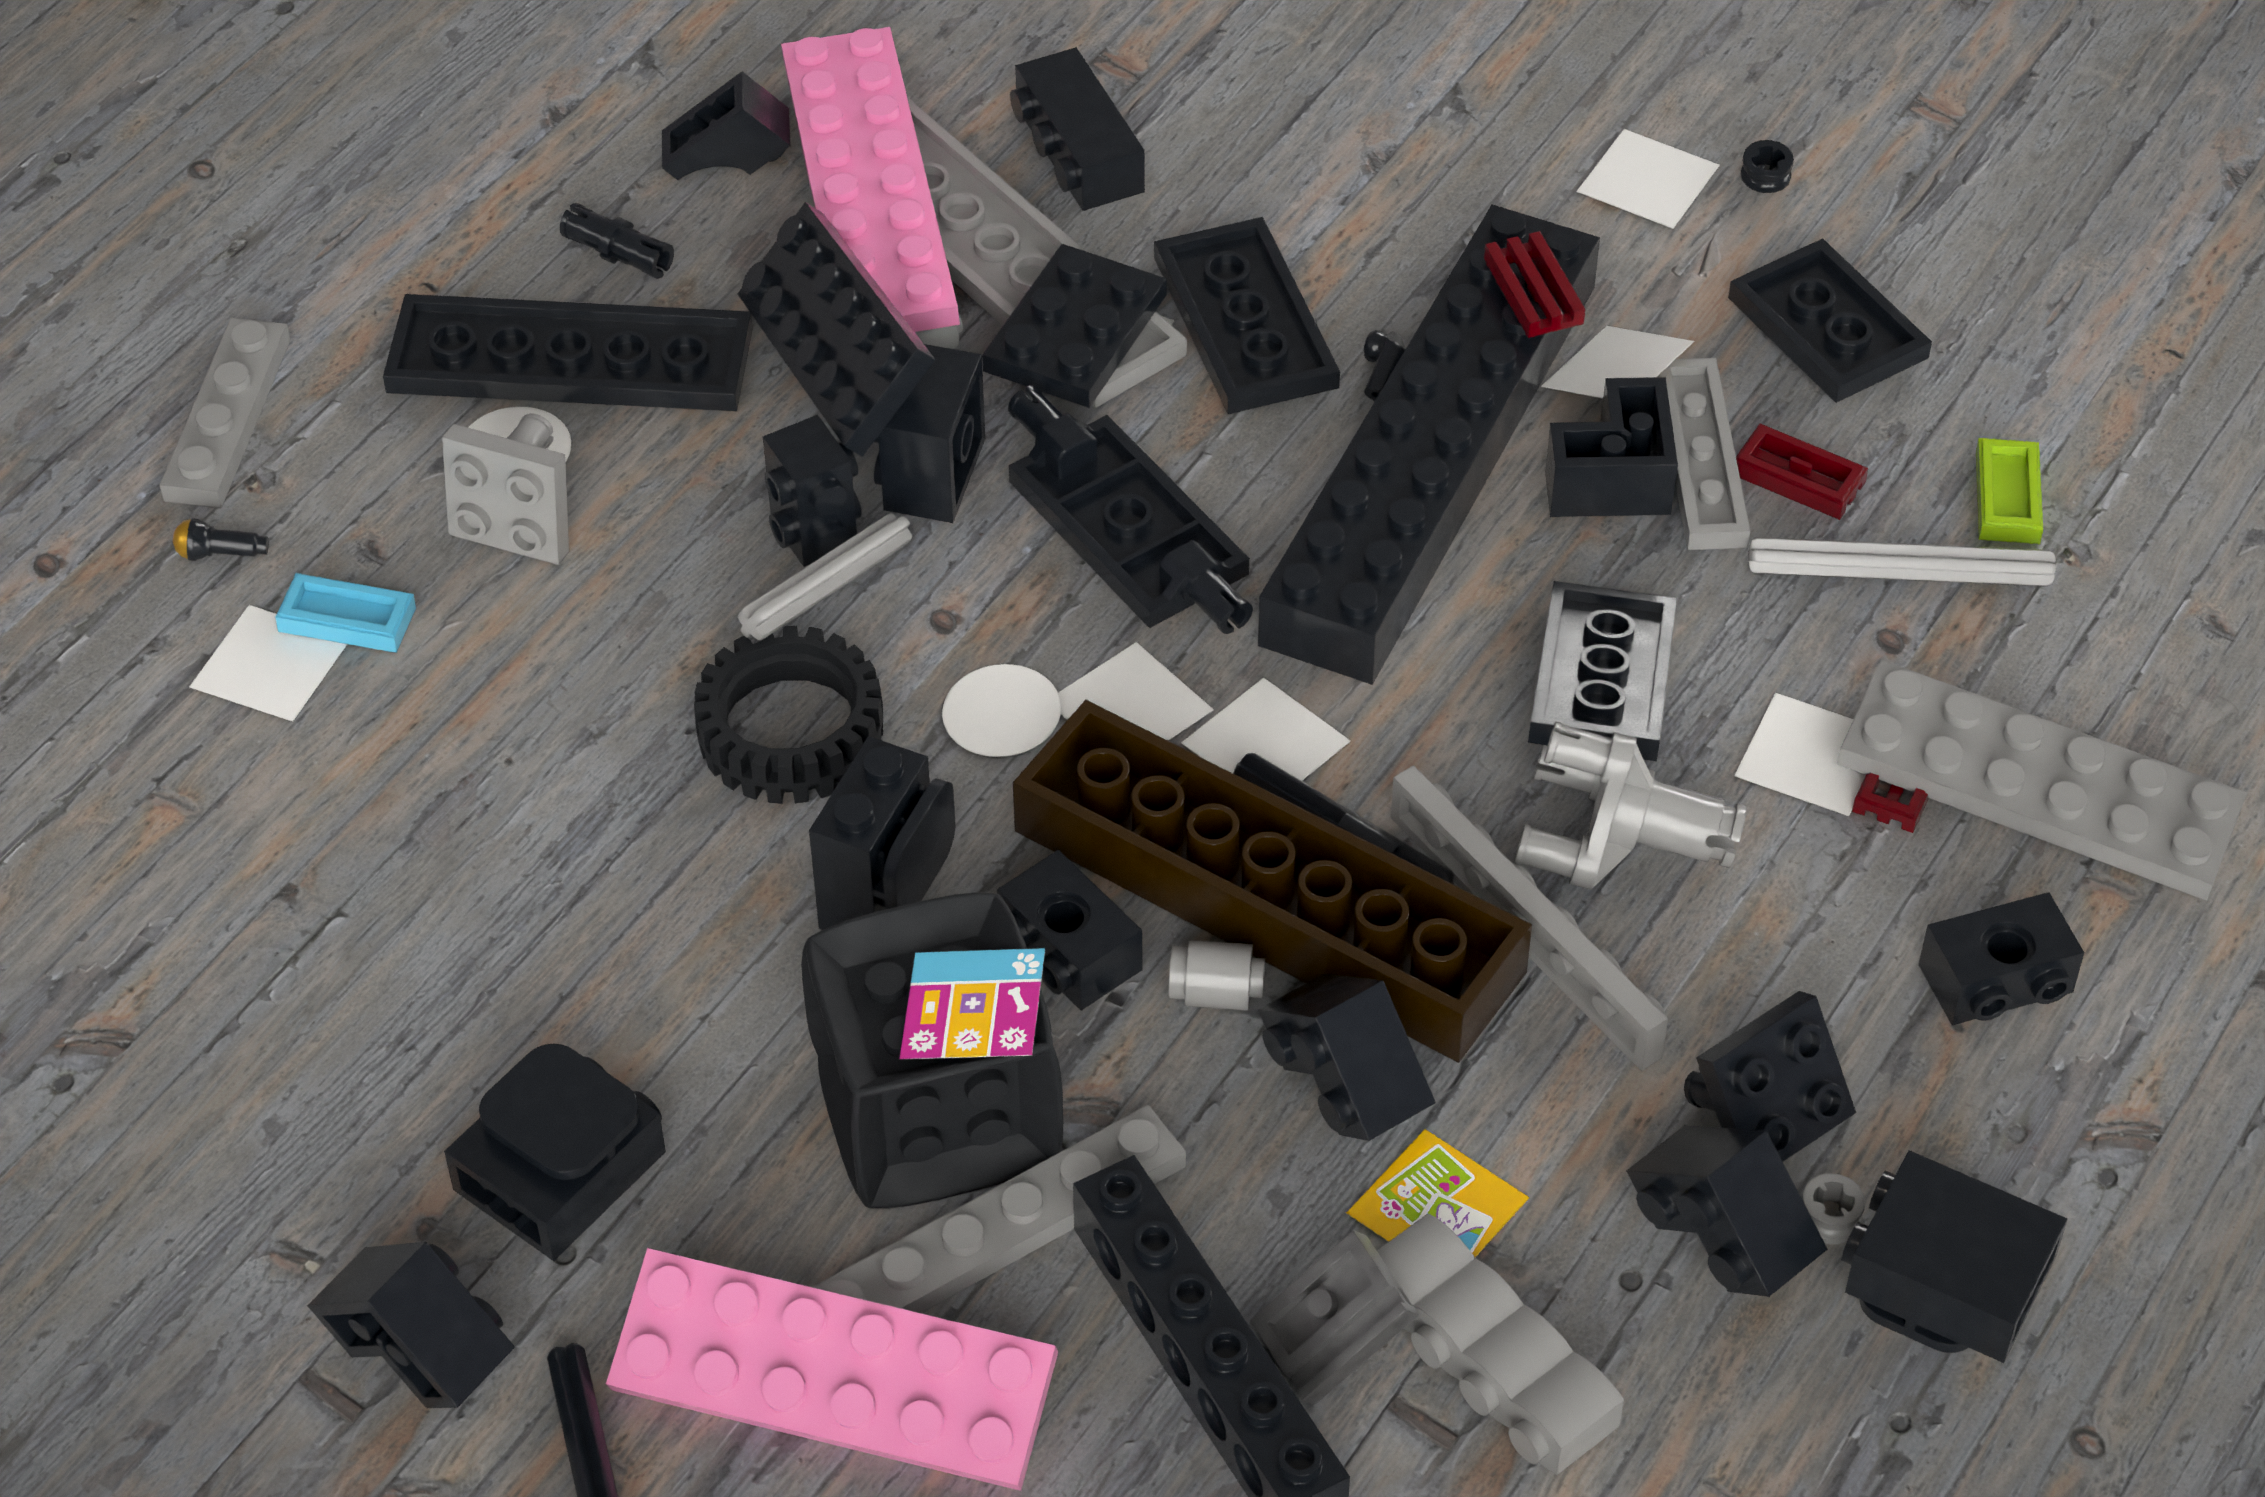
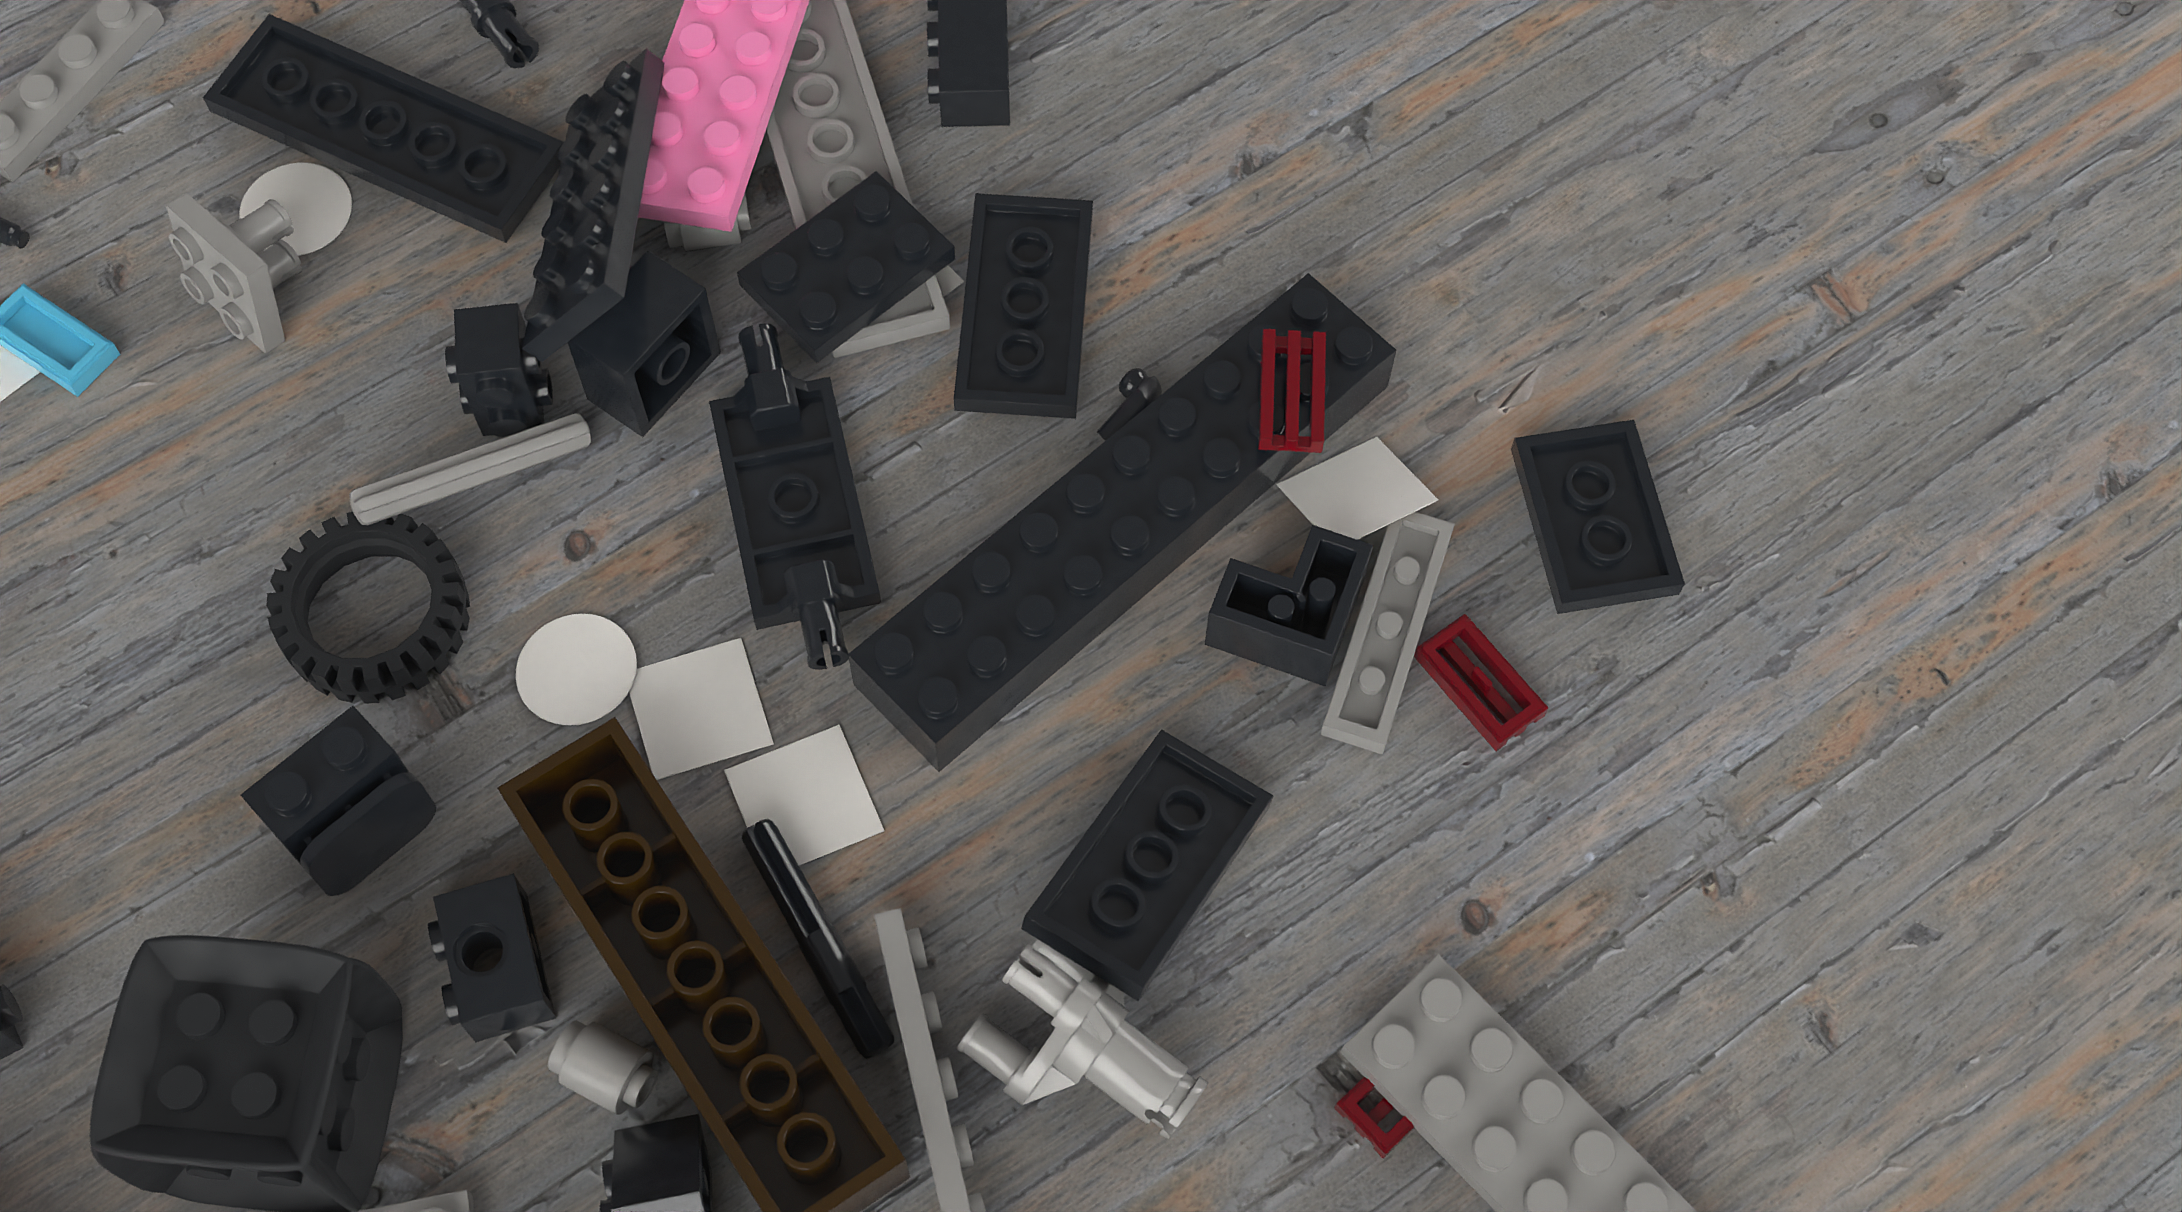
camera: 20 degrees right, 15 degrees up
(973, 1004) = (253, 1087): sticker -> none
(1648, 178) = (1504, 278): white sticker -> none
(1767, 153) = (1632, 291): black bush -> none
(1798, 755) = (1311, 1018): white sticker -> none
(1901, 561) = (1530, 832): axle -> none
(2009, 491) = (1683, 785): lime tile -> none

